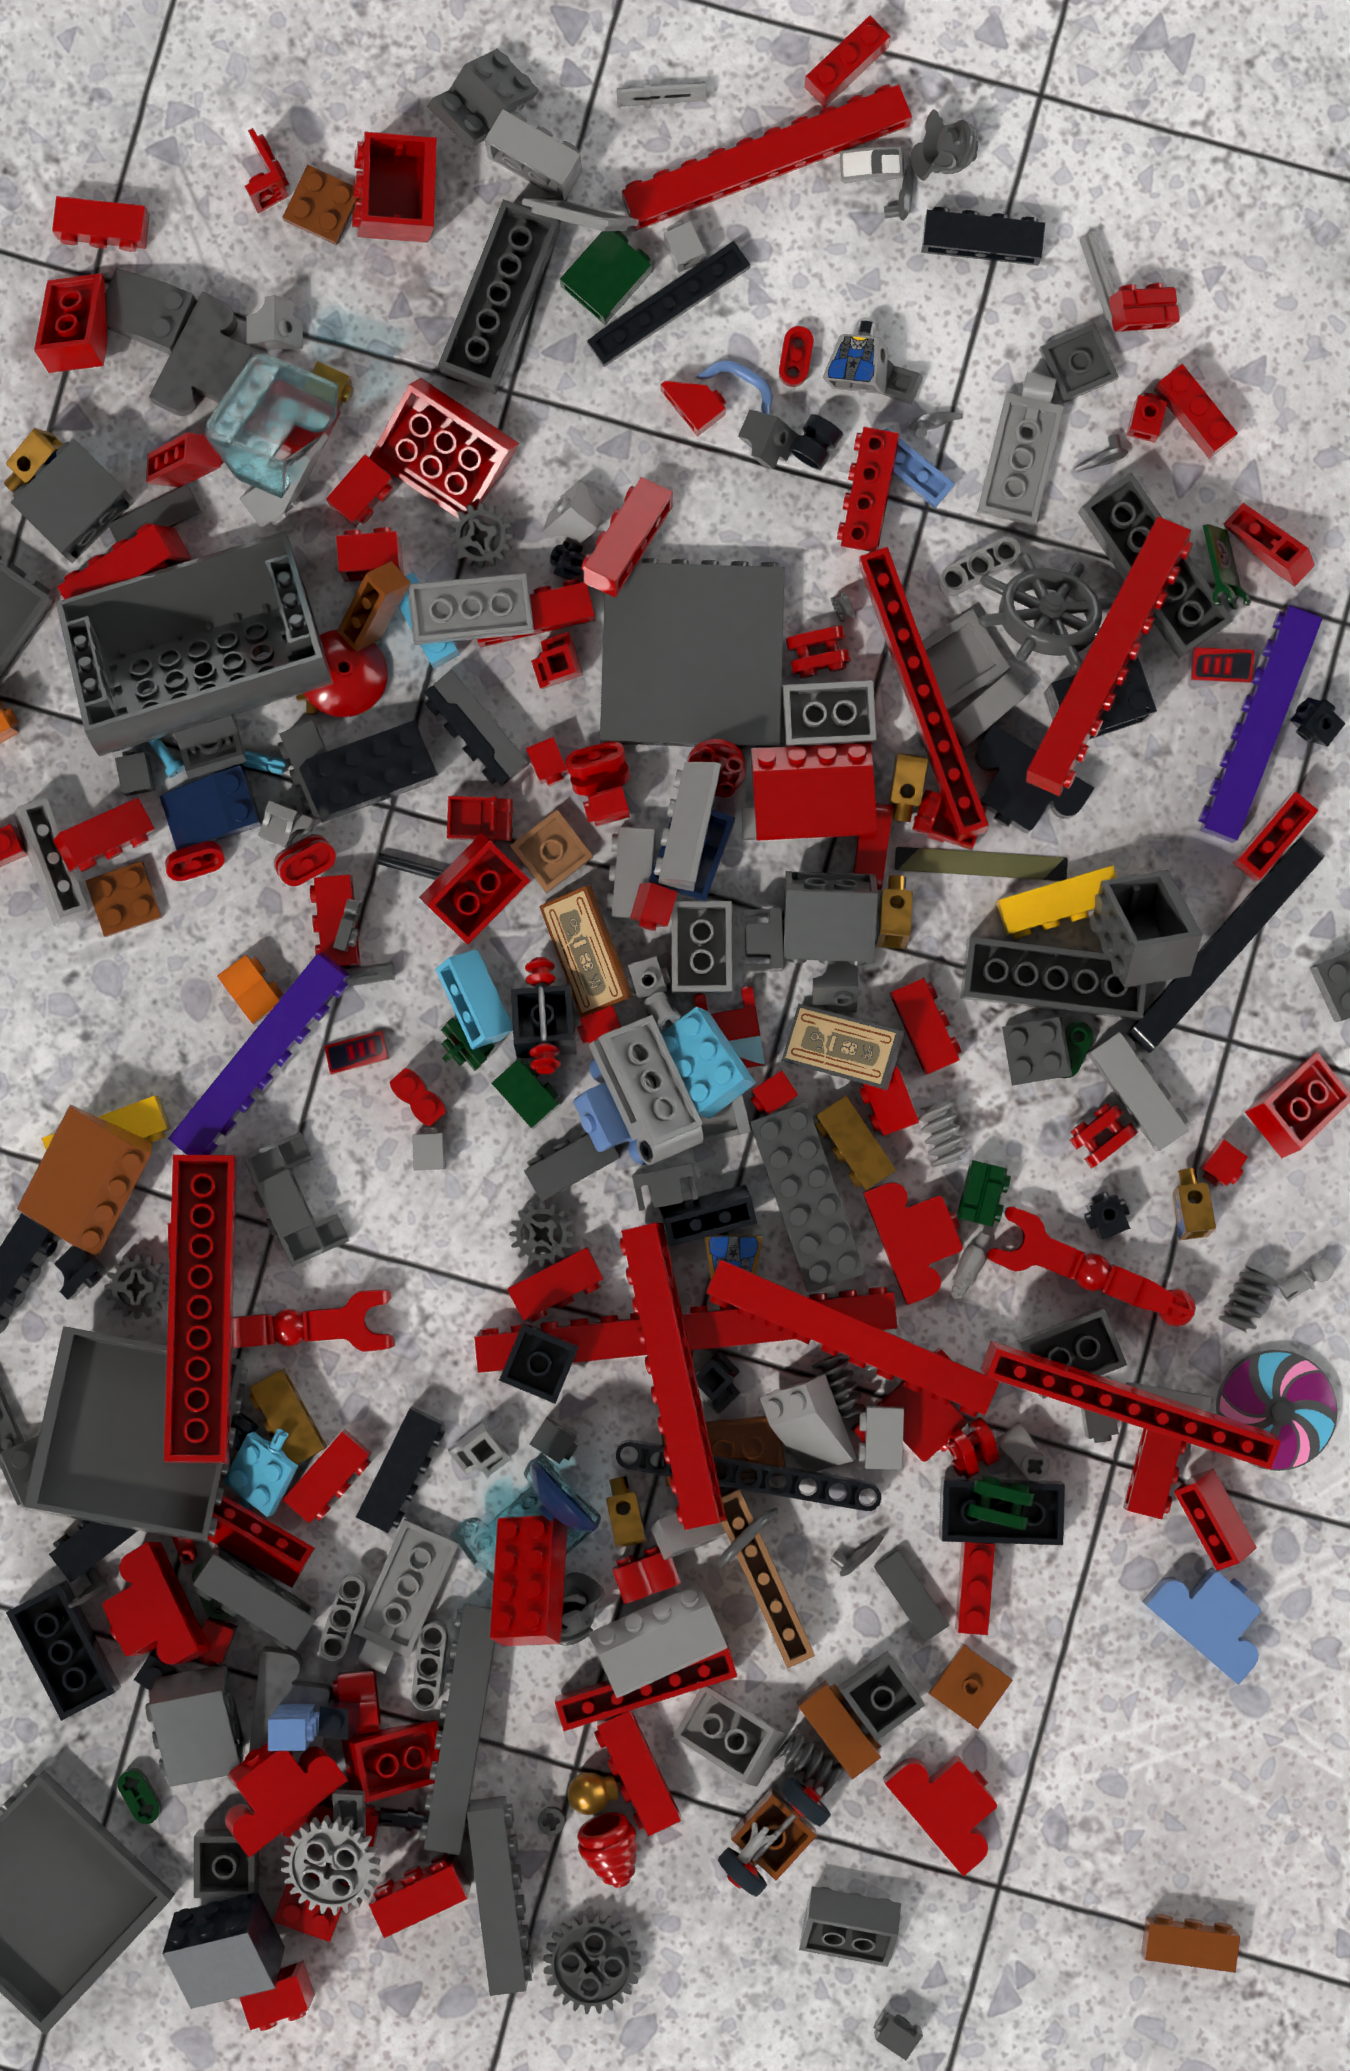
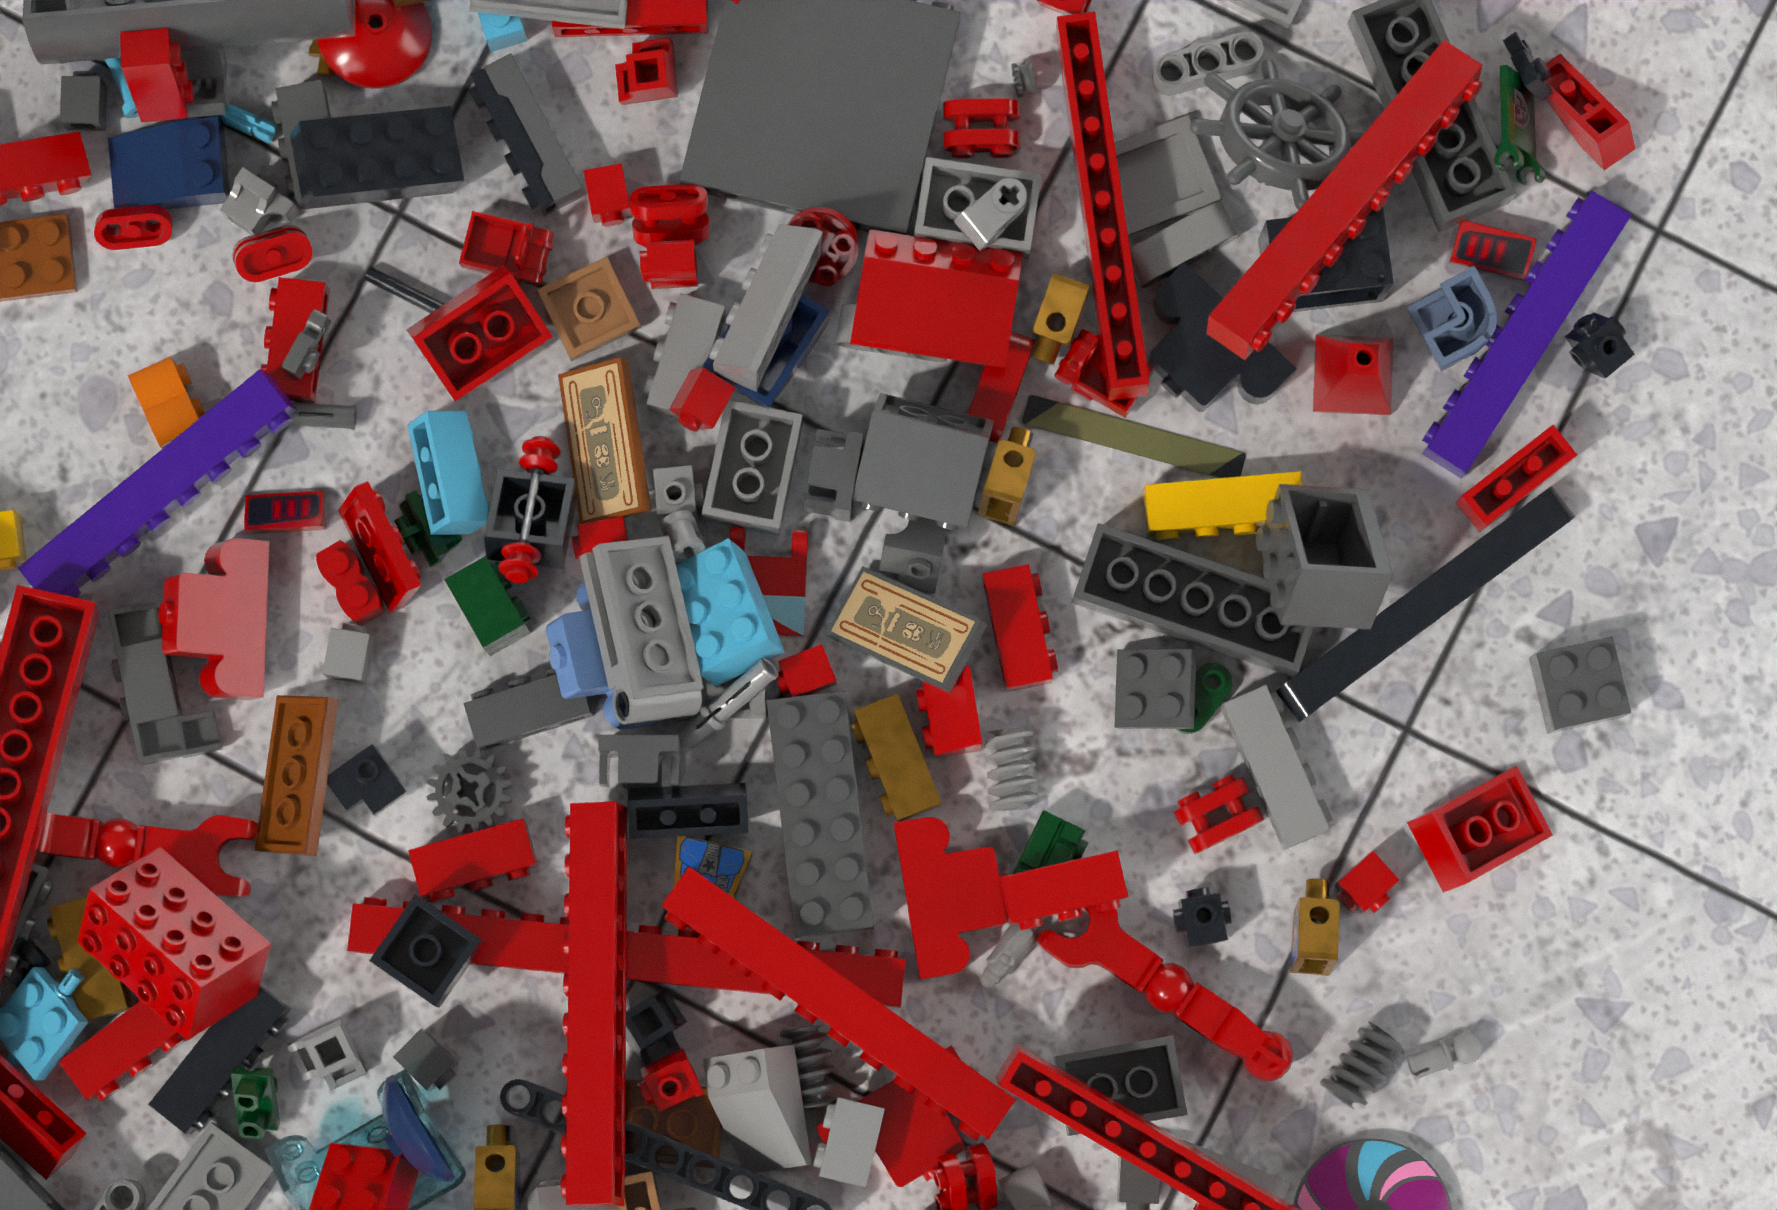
camera: 10 degrees right, 5 degrees down
(190, 747) = (156, 75): none -> red brick
(329, 1144) = (222, 618): none -> brick
(350, 1397) = (173, 943): none -> red brick
(411, 1249) = (296, 775): none -> dark orange tile
(434, 1498) = (255, 1101): none -> dark green hips
(435, 1065) = (380, 546): none -> red plate
(464, 1242) = (366, 780): none -> black brick
(734, 1411) = (673, 1068): none -> red brick
(741, 1105) = (695, 730): none -> light grey pin
(840, 722) = (988, 217): none -> light grey piece
(1001, 1217) = (1064, 890): none -> red brick
(1128, 789) = (1353, 374): none -> red slope
(1206, 724) = (1456, 318): none -> sand blue brick
(1226, 523) = (1532, 72): none -> black plate

